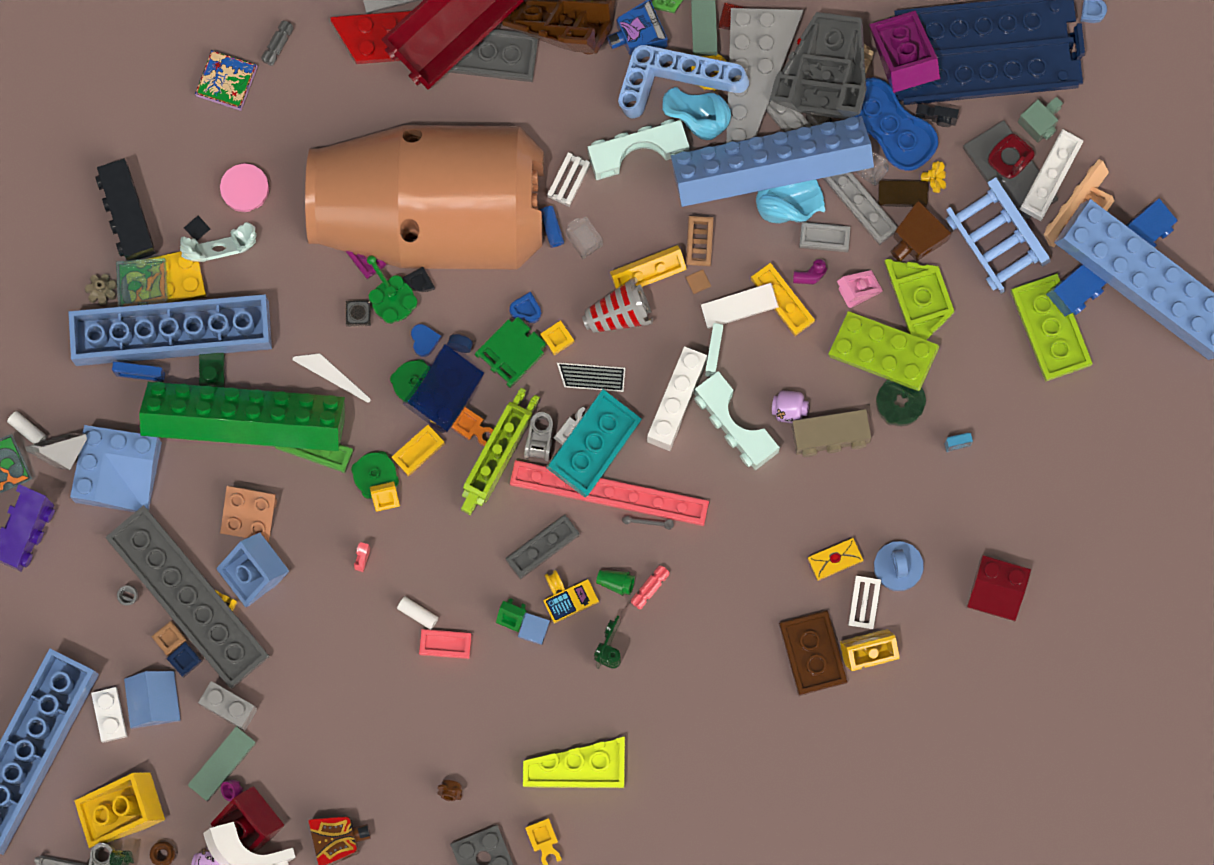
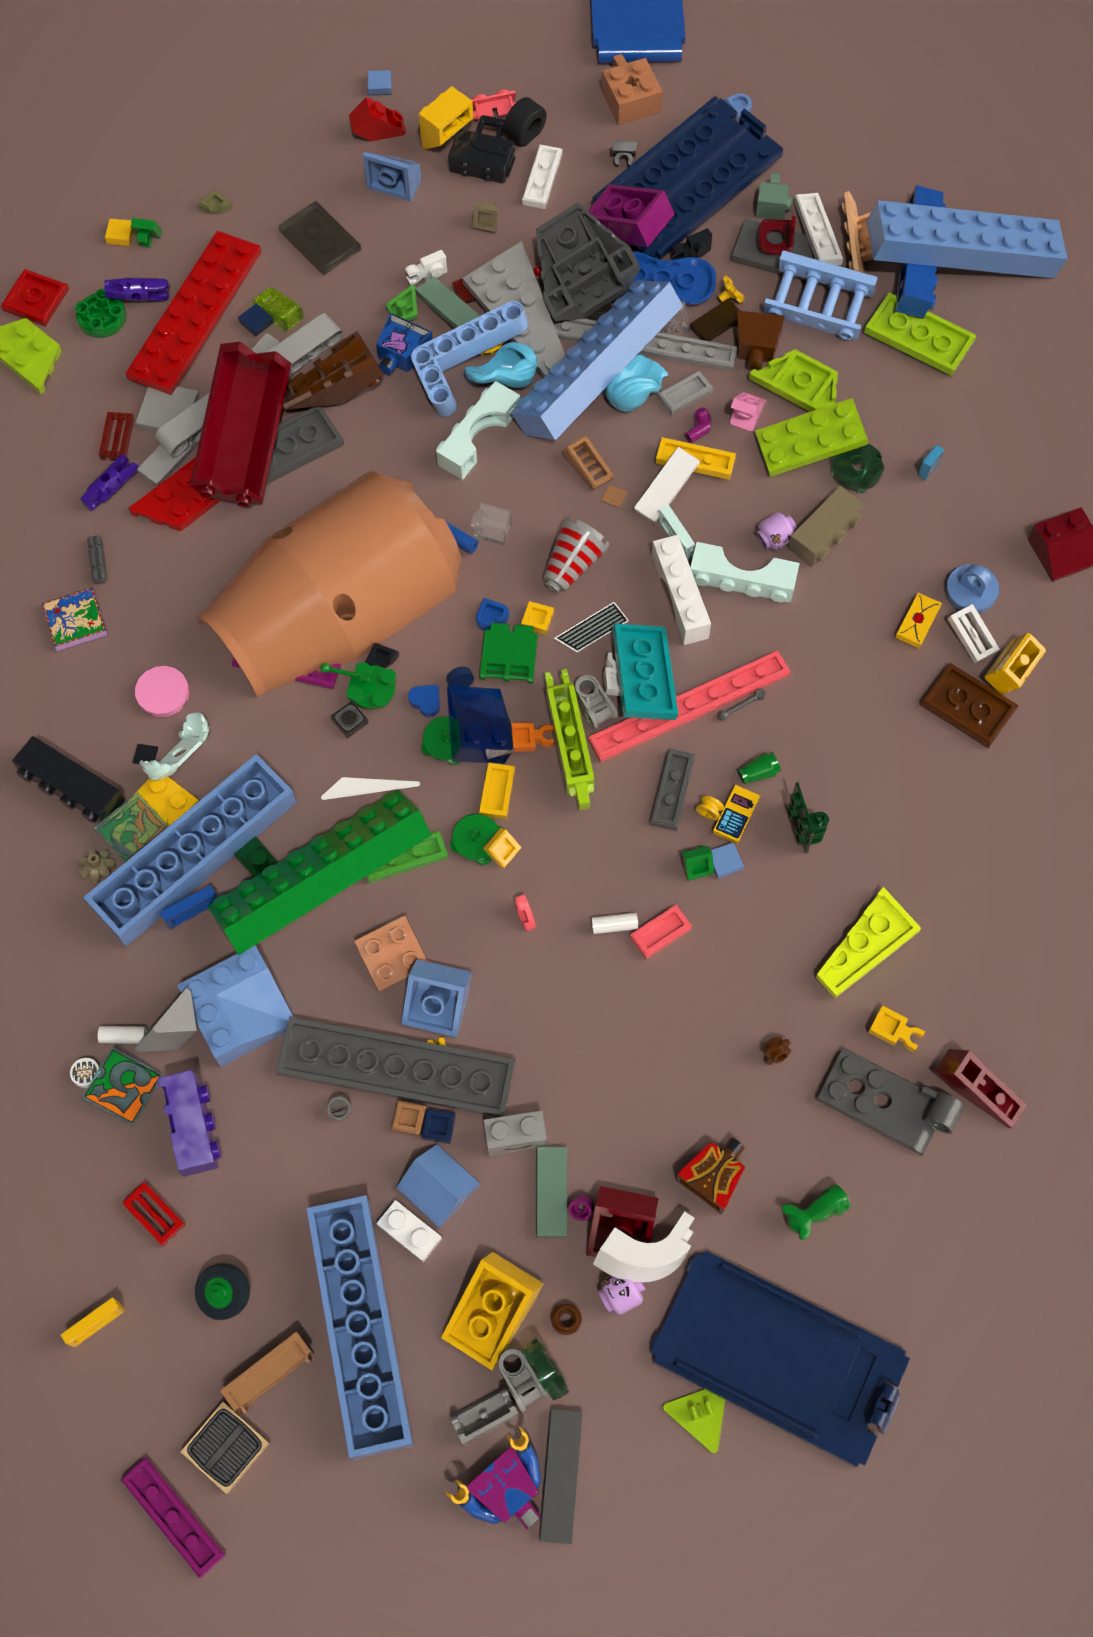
camera: 40 degrees left, 10 degrees down
(577, 161) = (436, 475): white tile -> none
(650, 587) = (791, 753): coral axle -> none
(651, 268) = (571, 504): yellow plate -> none

